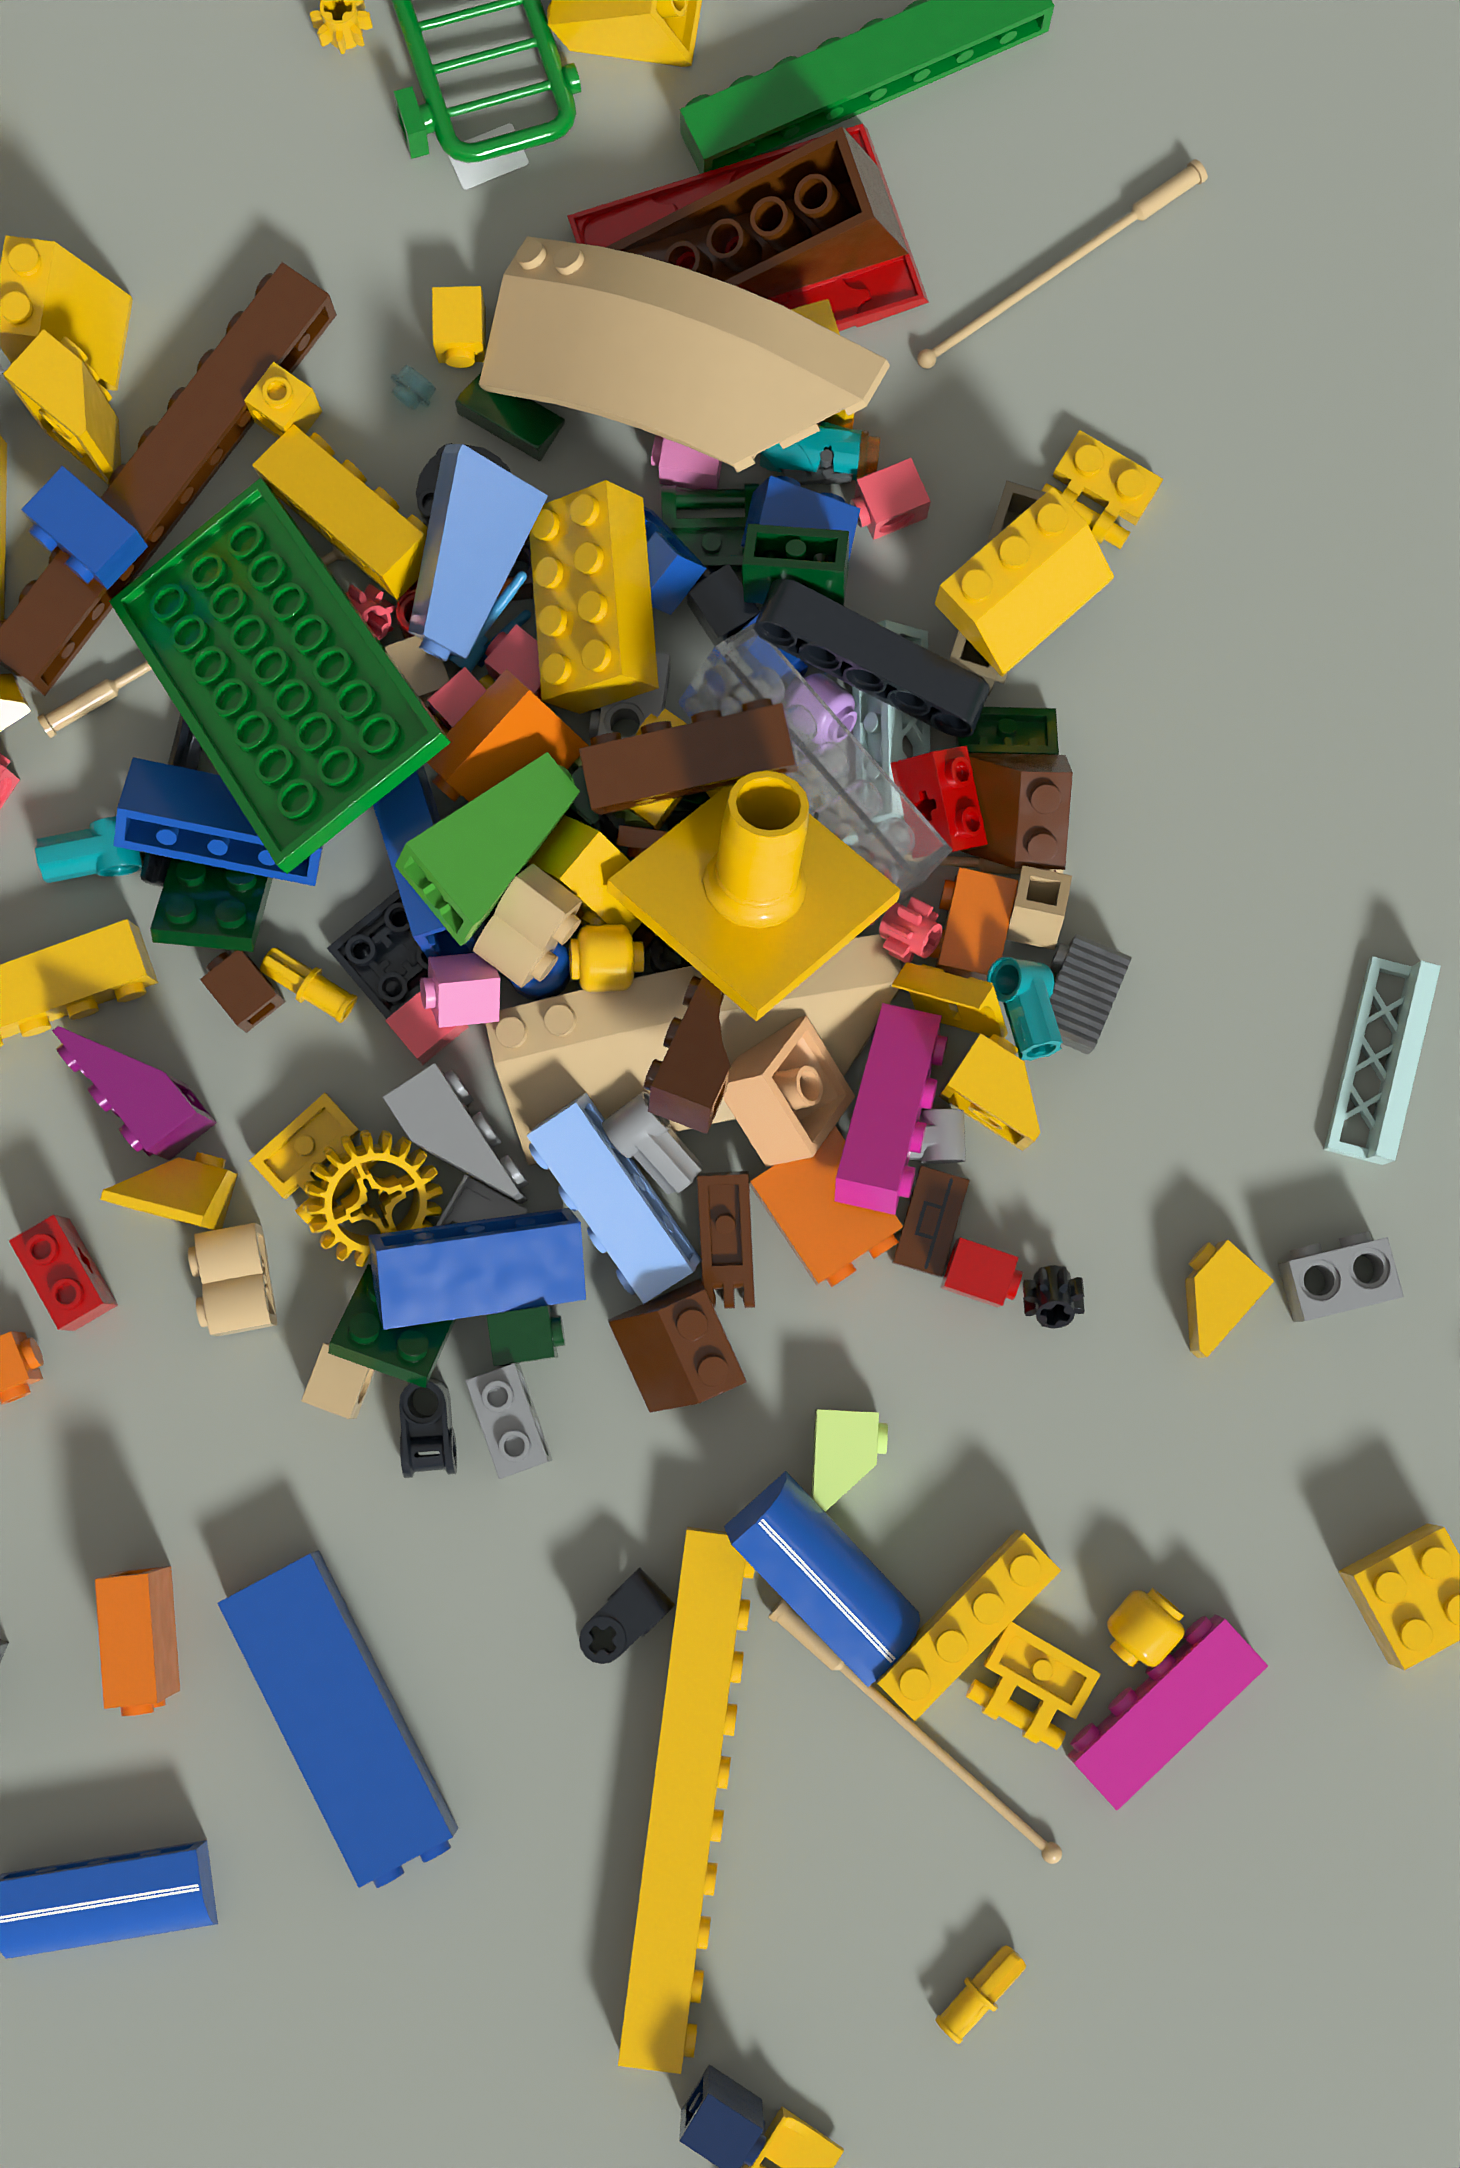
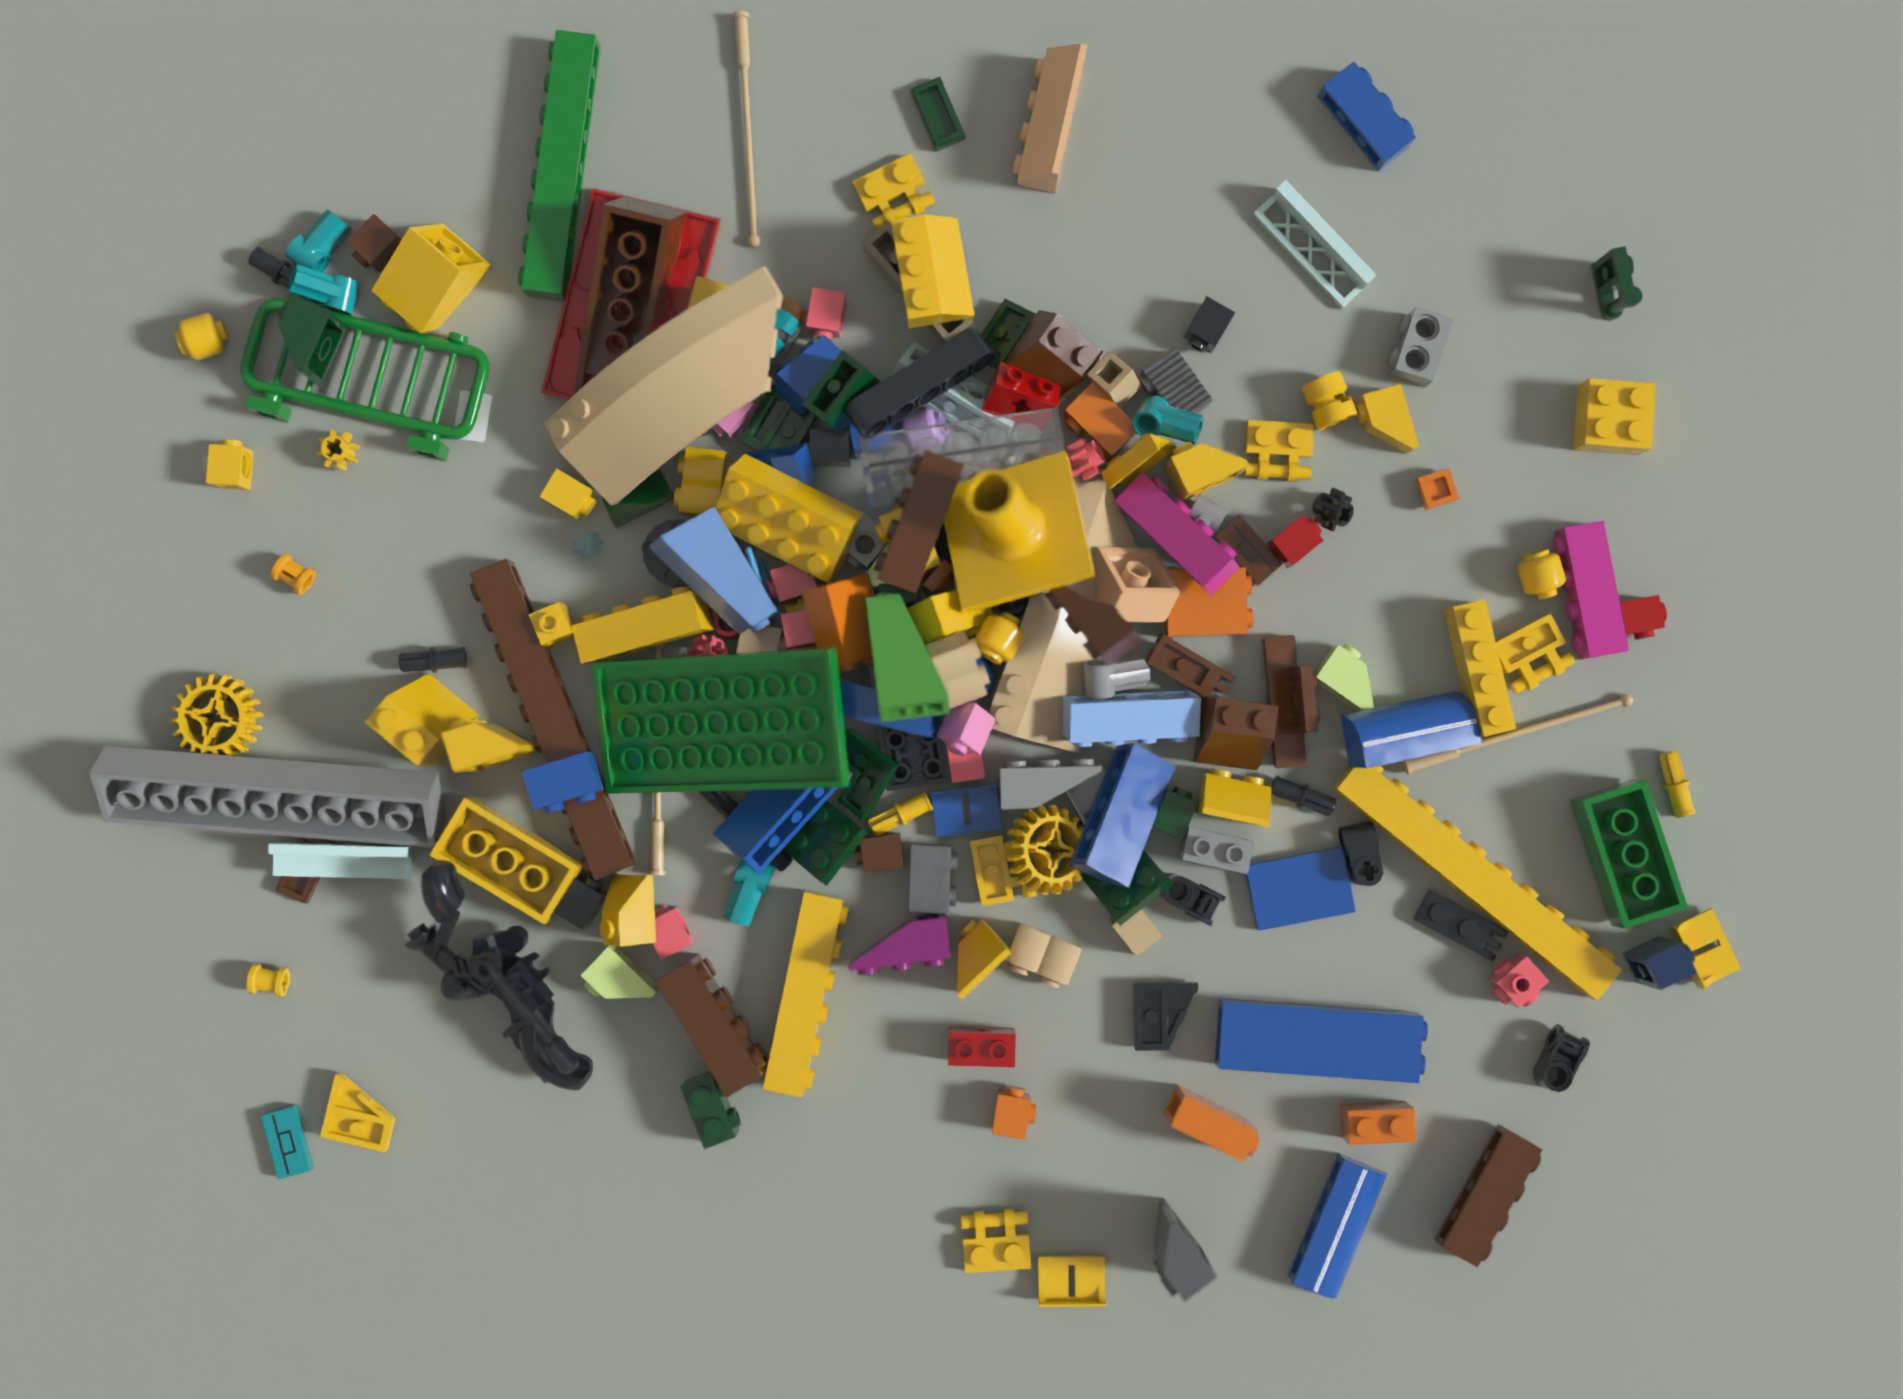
camera: 55 degrees left, 5 degrees up
(149, 290) = (433, 659): none -> black axle
(153, 59) = (293, 574): none -> light orange bush
(246, 1074) = (930, 878): none -> flat silver brick
(250, 1481) = (1159, 1012): none -> black wing
(264, 2082) = (1488, 1196): none -> reddish brown brick
(274, 1867) = (1378, 1123): none -> orange brick
(336, 910) = (870, 774): none -> dark green plate
(346, 1048) = (982, 805): none -> blue piece
(514, 2066) = (1562, 1057): none -> black piece
(527, 1566) = (1300, 888): none -> blue tile
(578, 1957) = (1517, 981): none -> coral brick
(585, 462) = (702, 480): none -> yellow brick
(589, 1401) = (1234, 799): none -> yellow slope
(610, 1813) = (1459, 924): none -> black hinge
(652, 1494) = (1303, 796): none -> black axle
(776, 1392) = (1294, 692): none -> reddish brown bracket
(844, 1985) = (1629, 854): none -> green brick
(1100, 1172) = (1280, 440): none -> yellow plate
(1169, 1419) = (1437, 489): none -> orange plate
(1175, 1802) = (1643, 616): none -> red brick
(1188, 987) = (1208, 325): none -> black brick
(1192, 1202) = (1329, 400): none -> yellow wheel
(1235, 484) = (937, 114): none -> dark green tile
(1322, 623) = (1051, 117): none -> light nougat slope

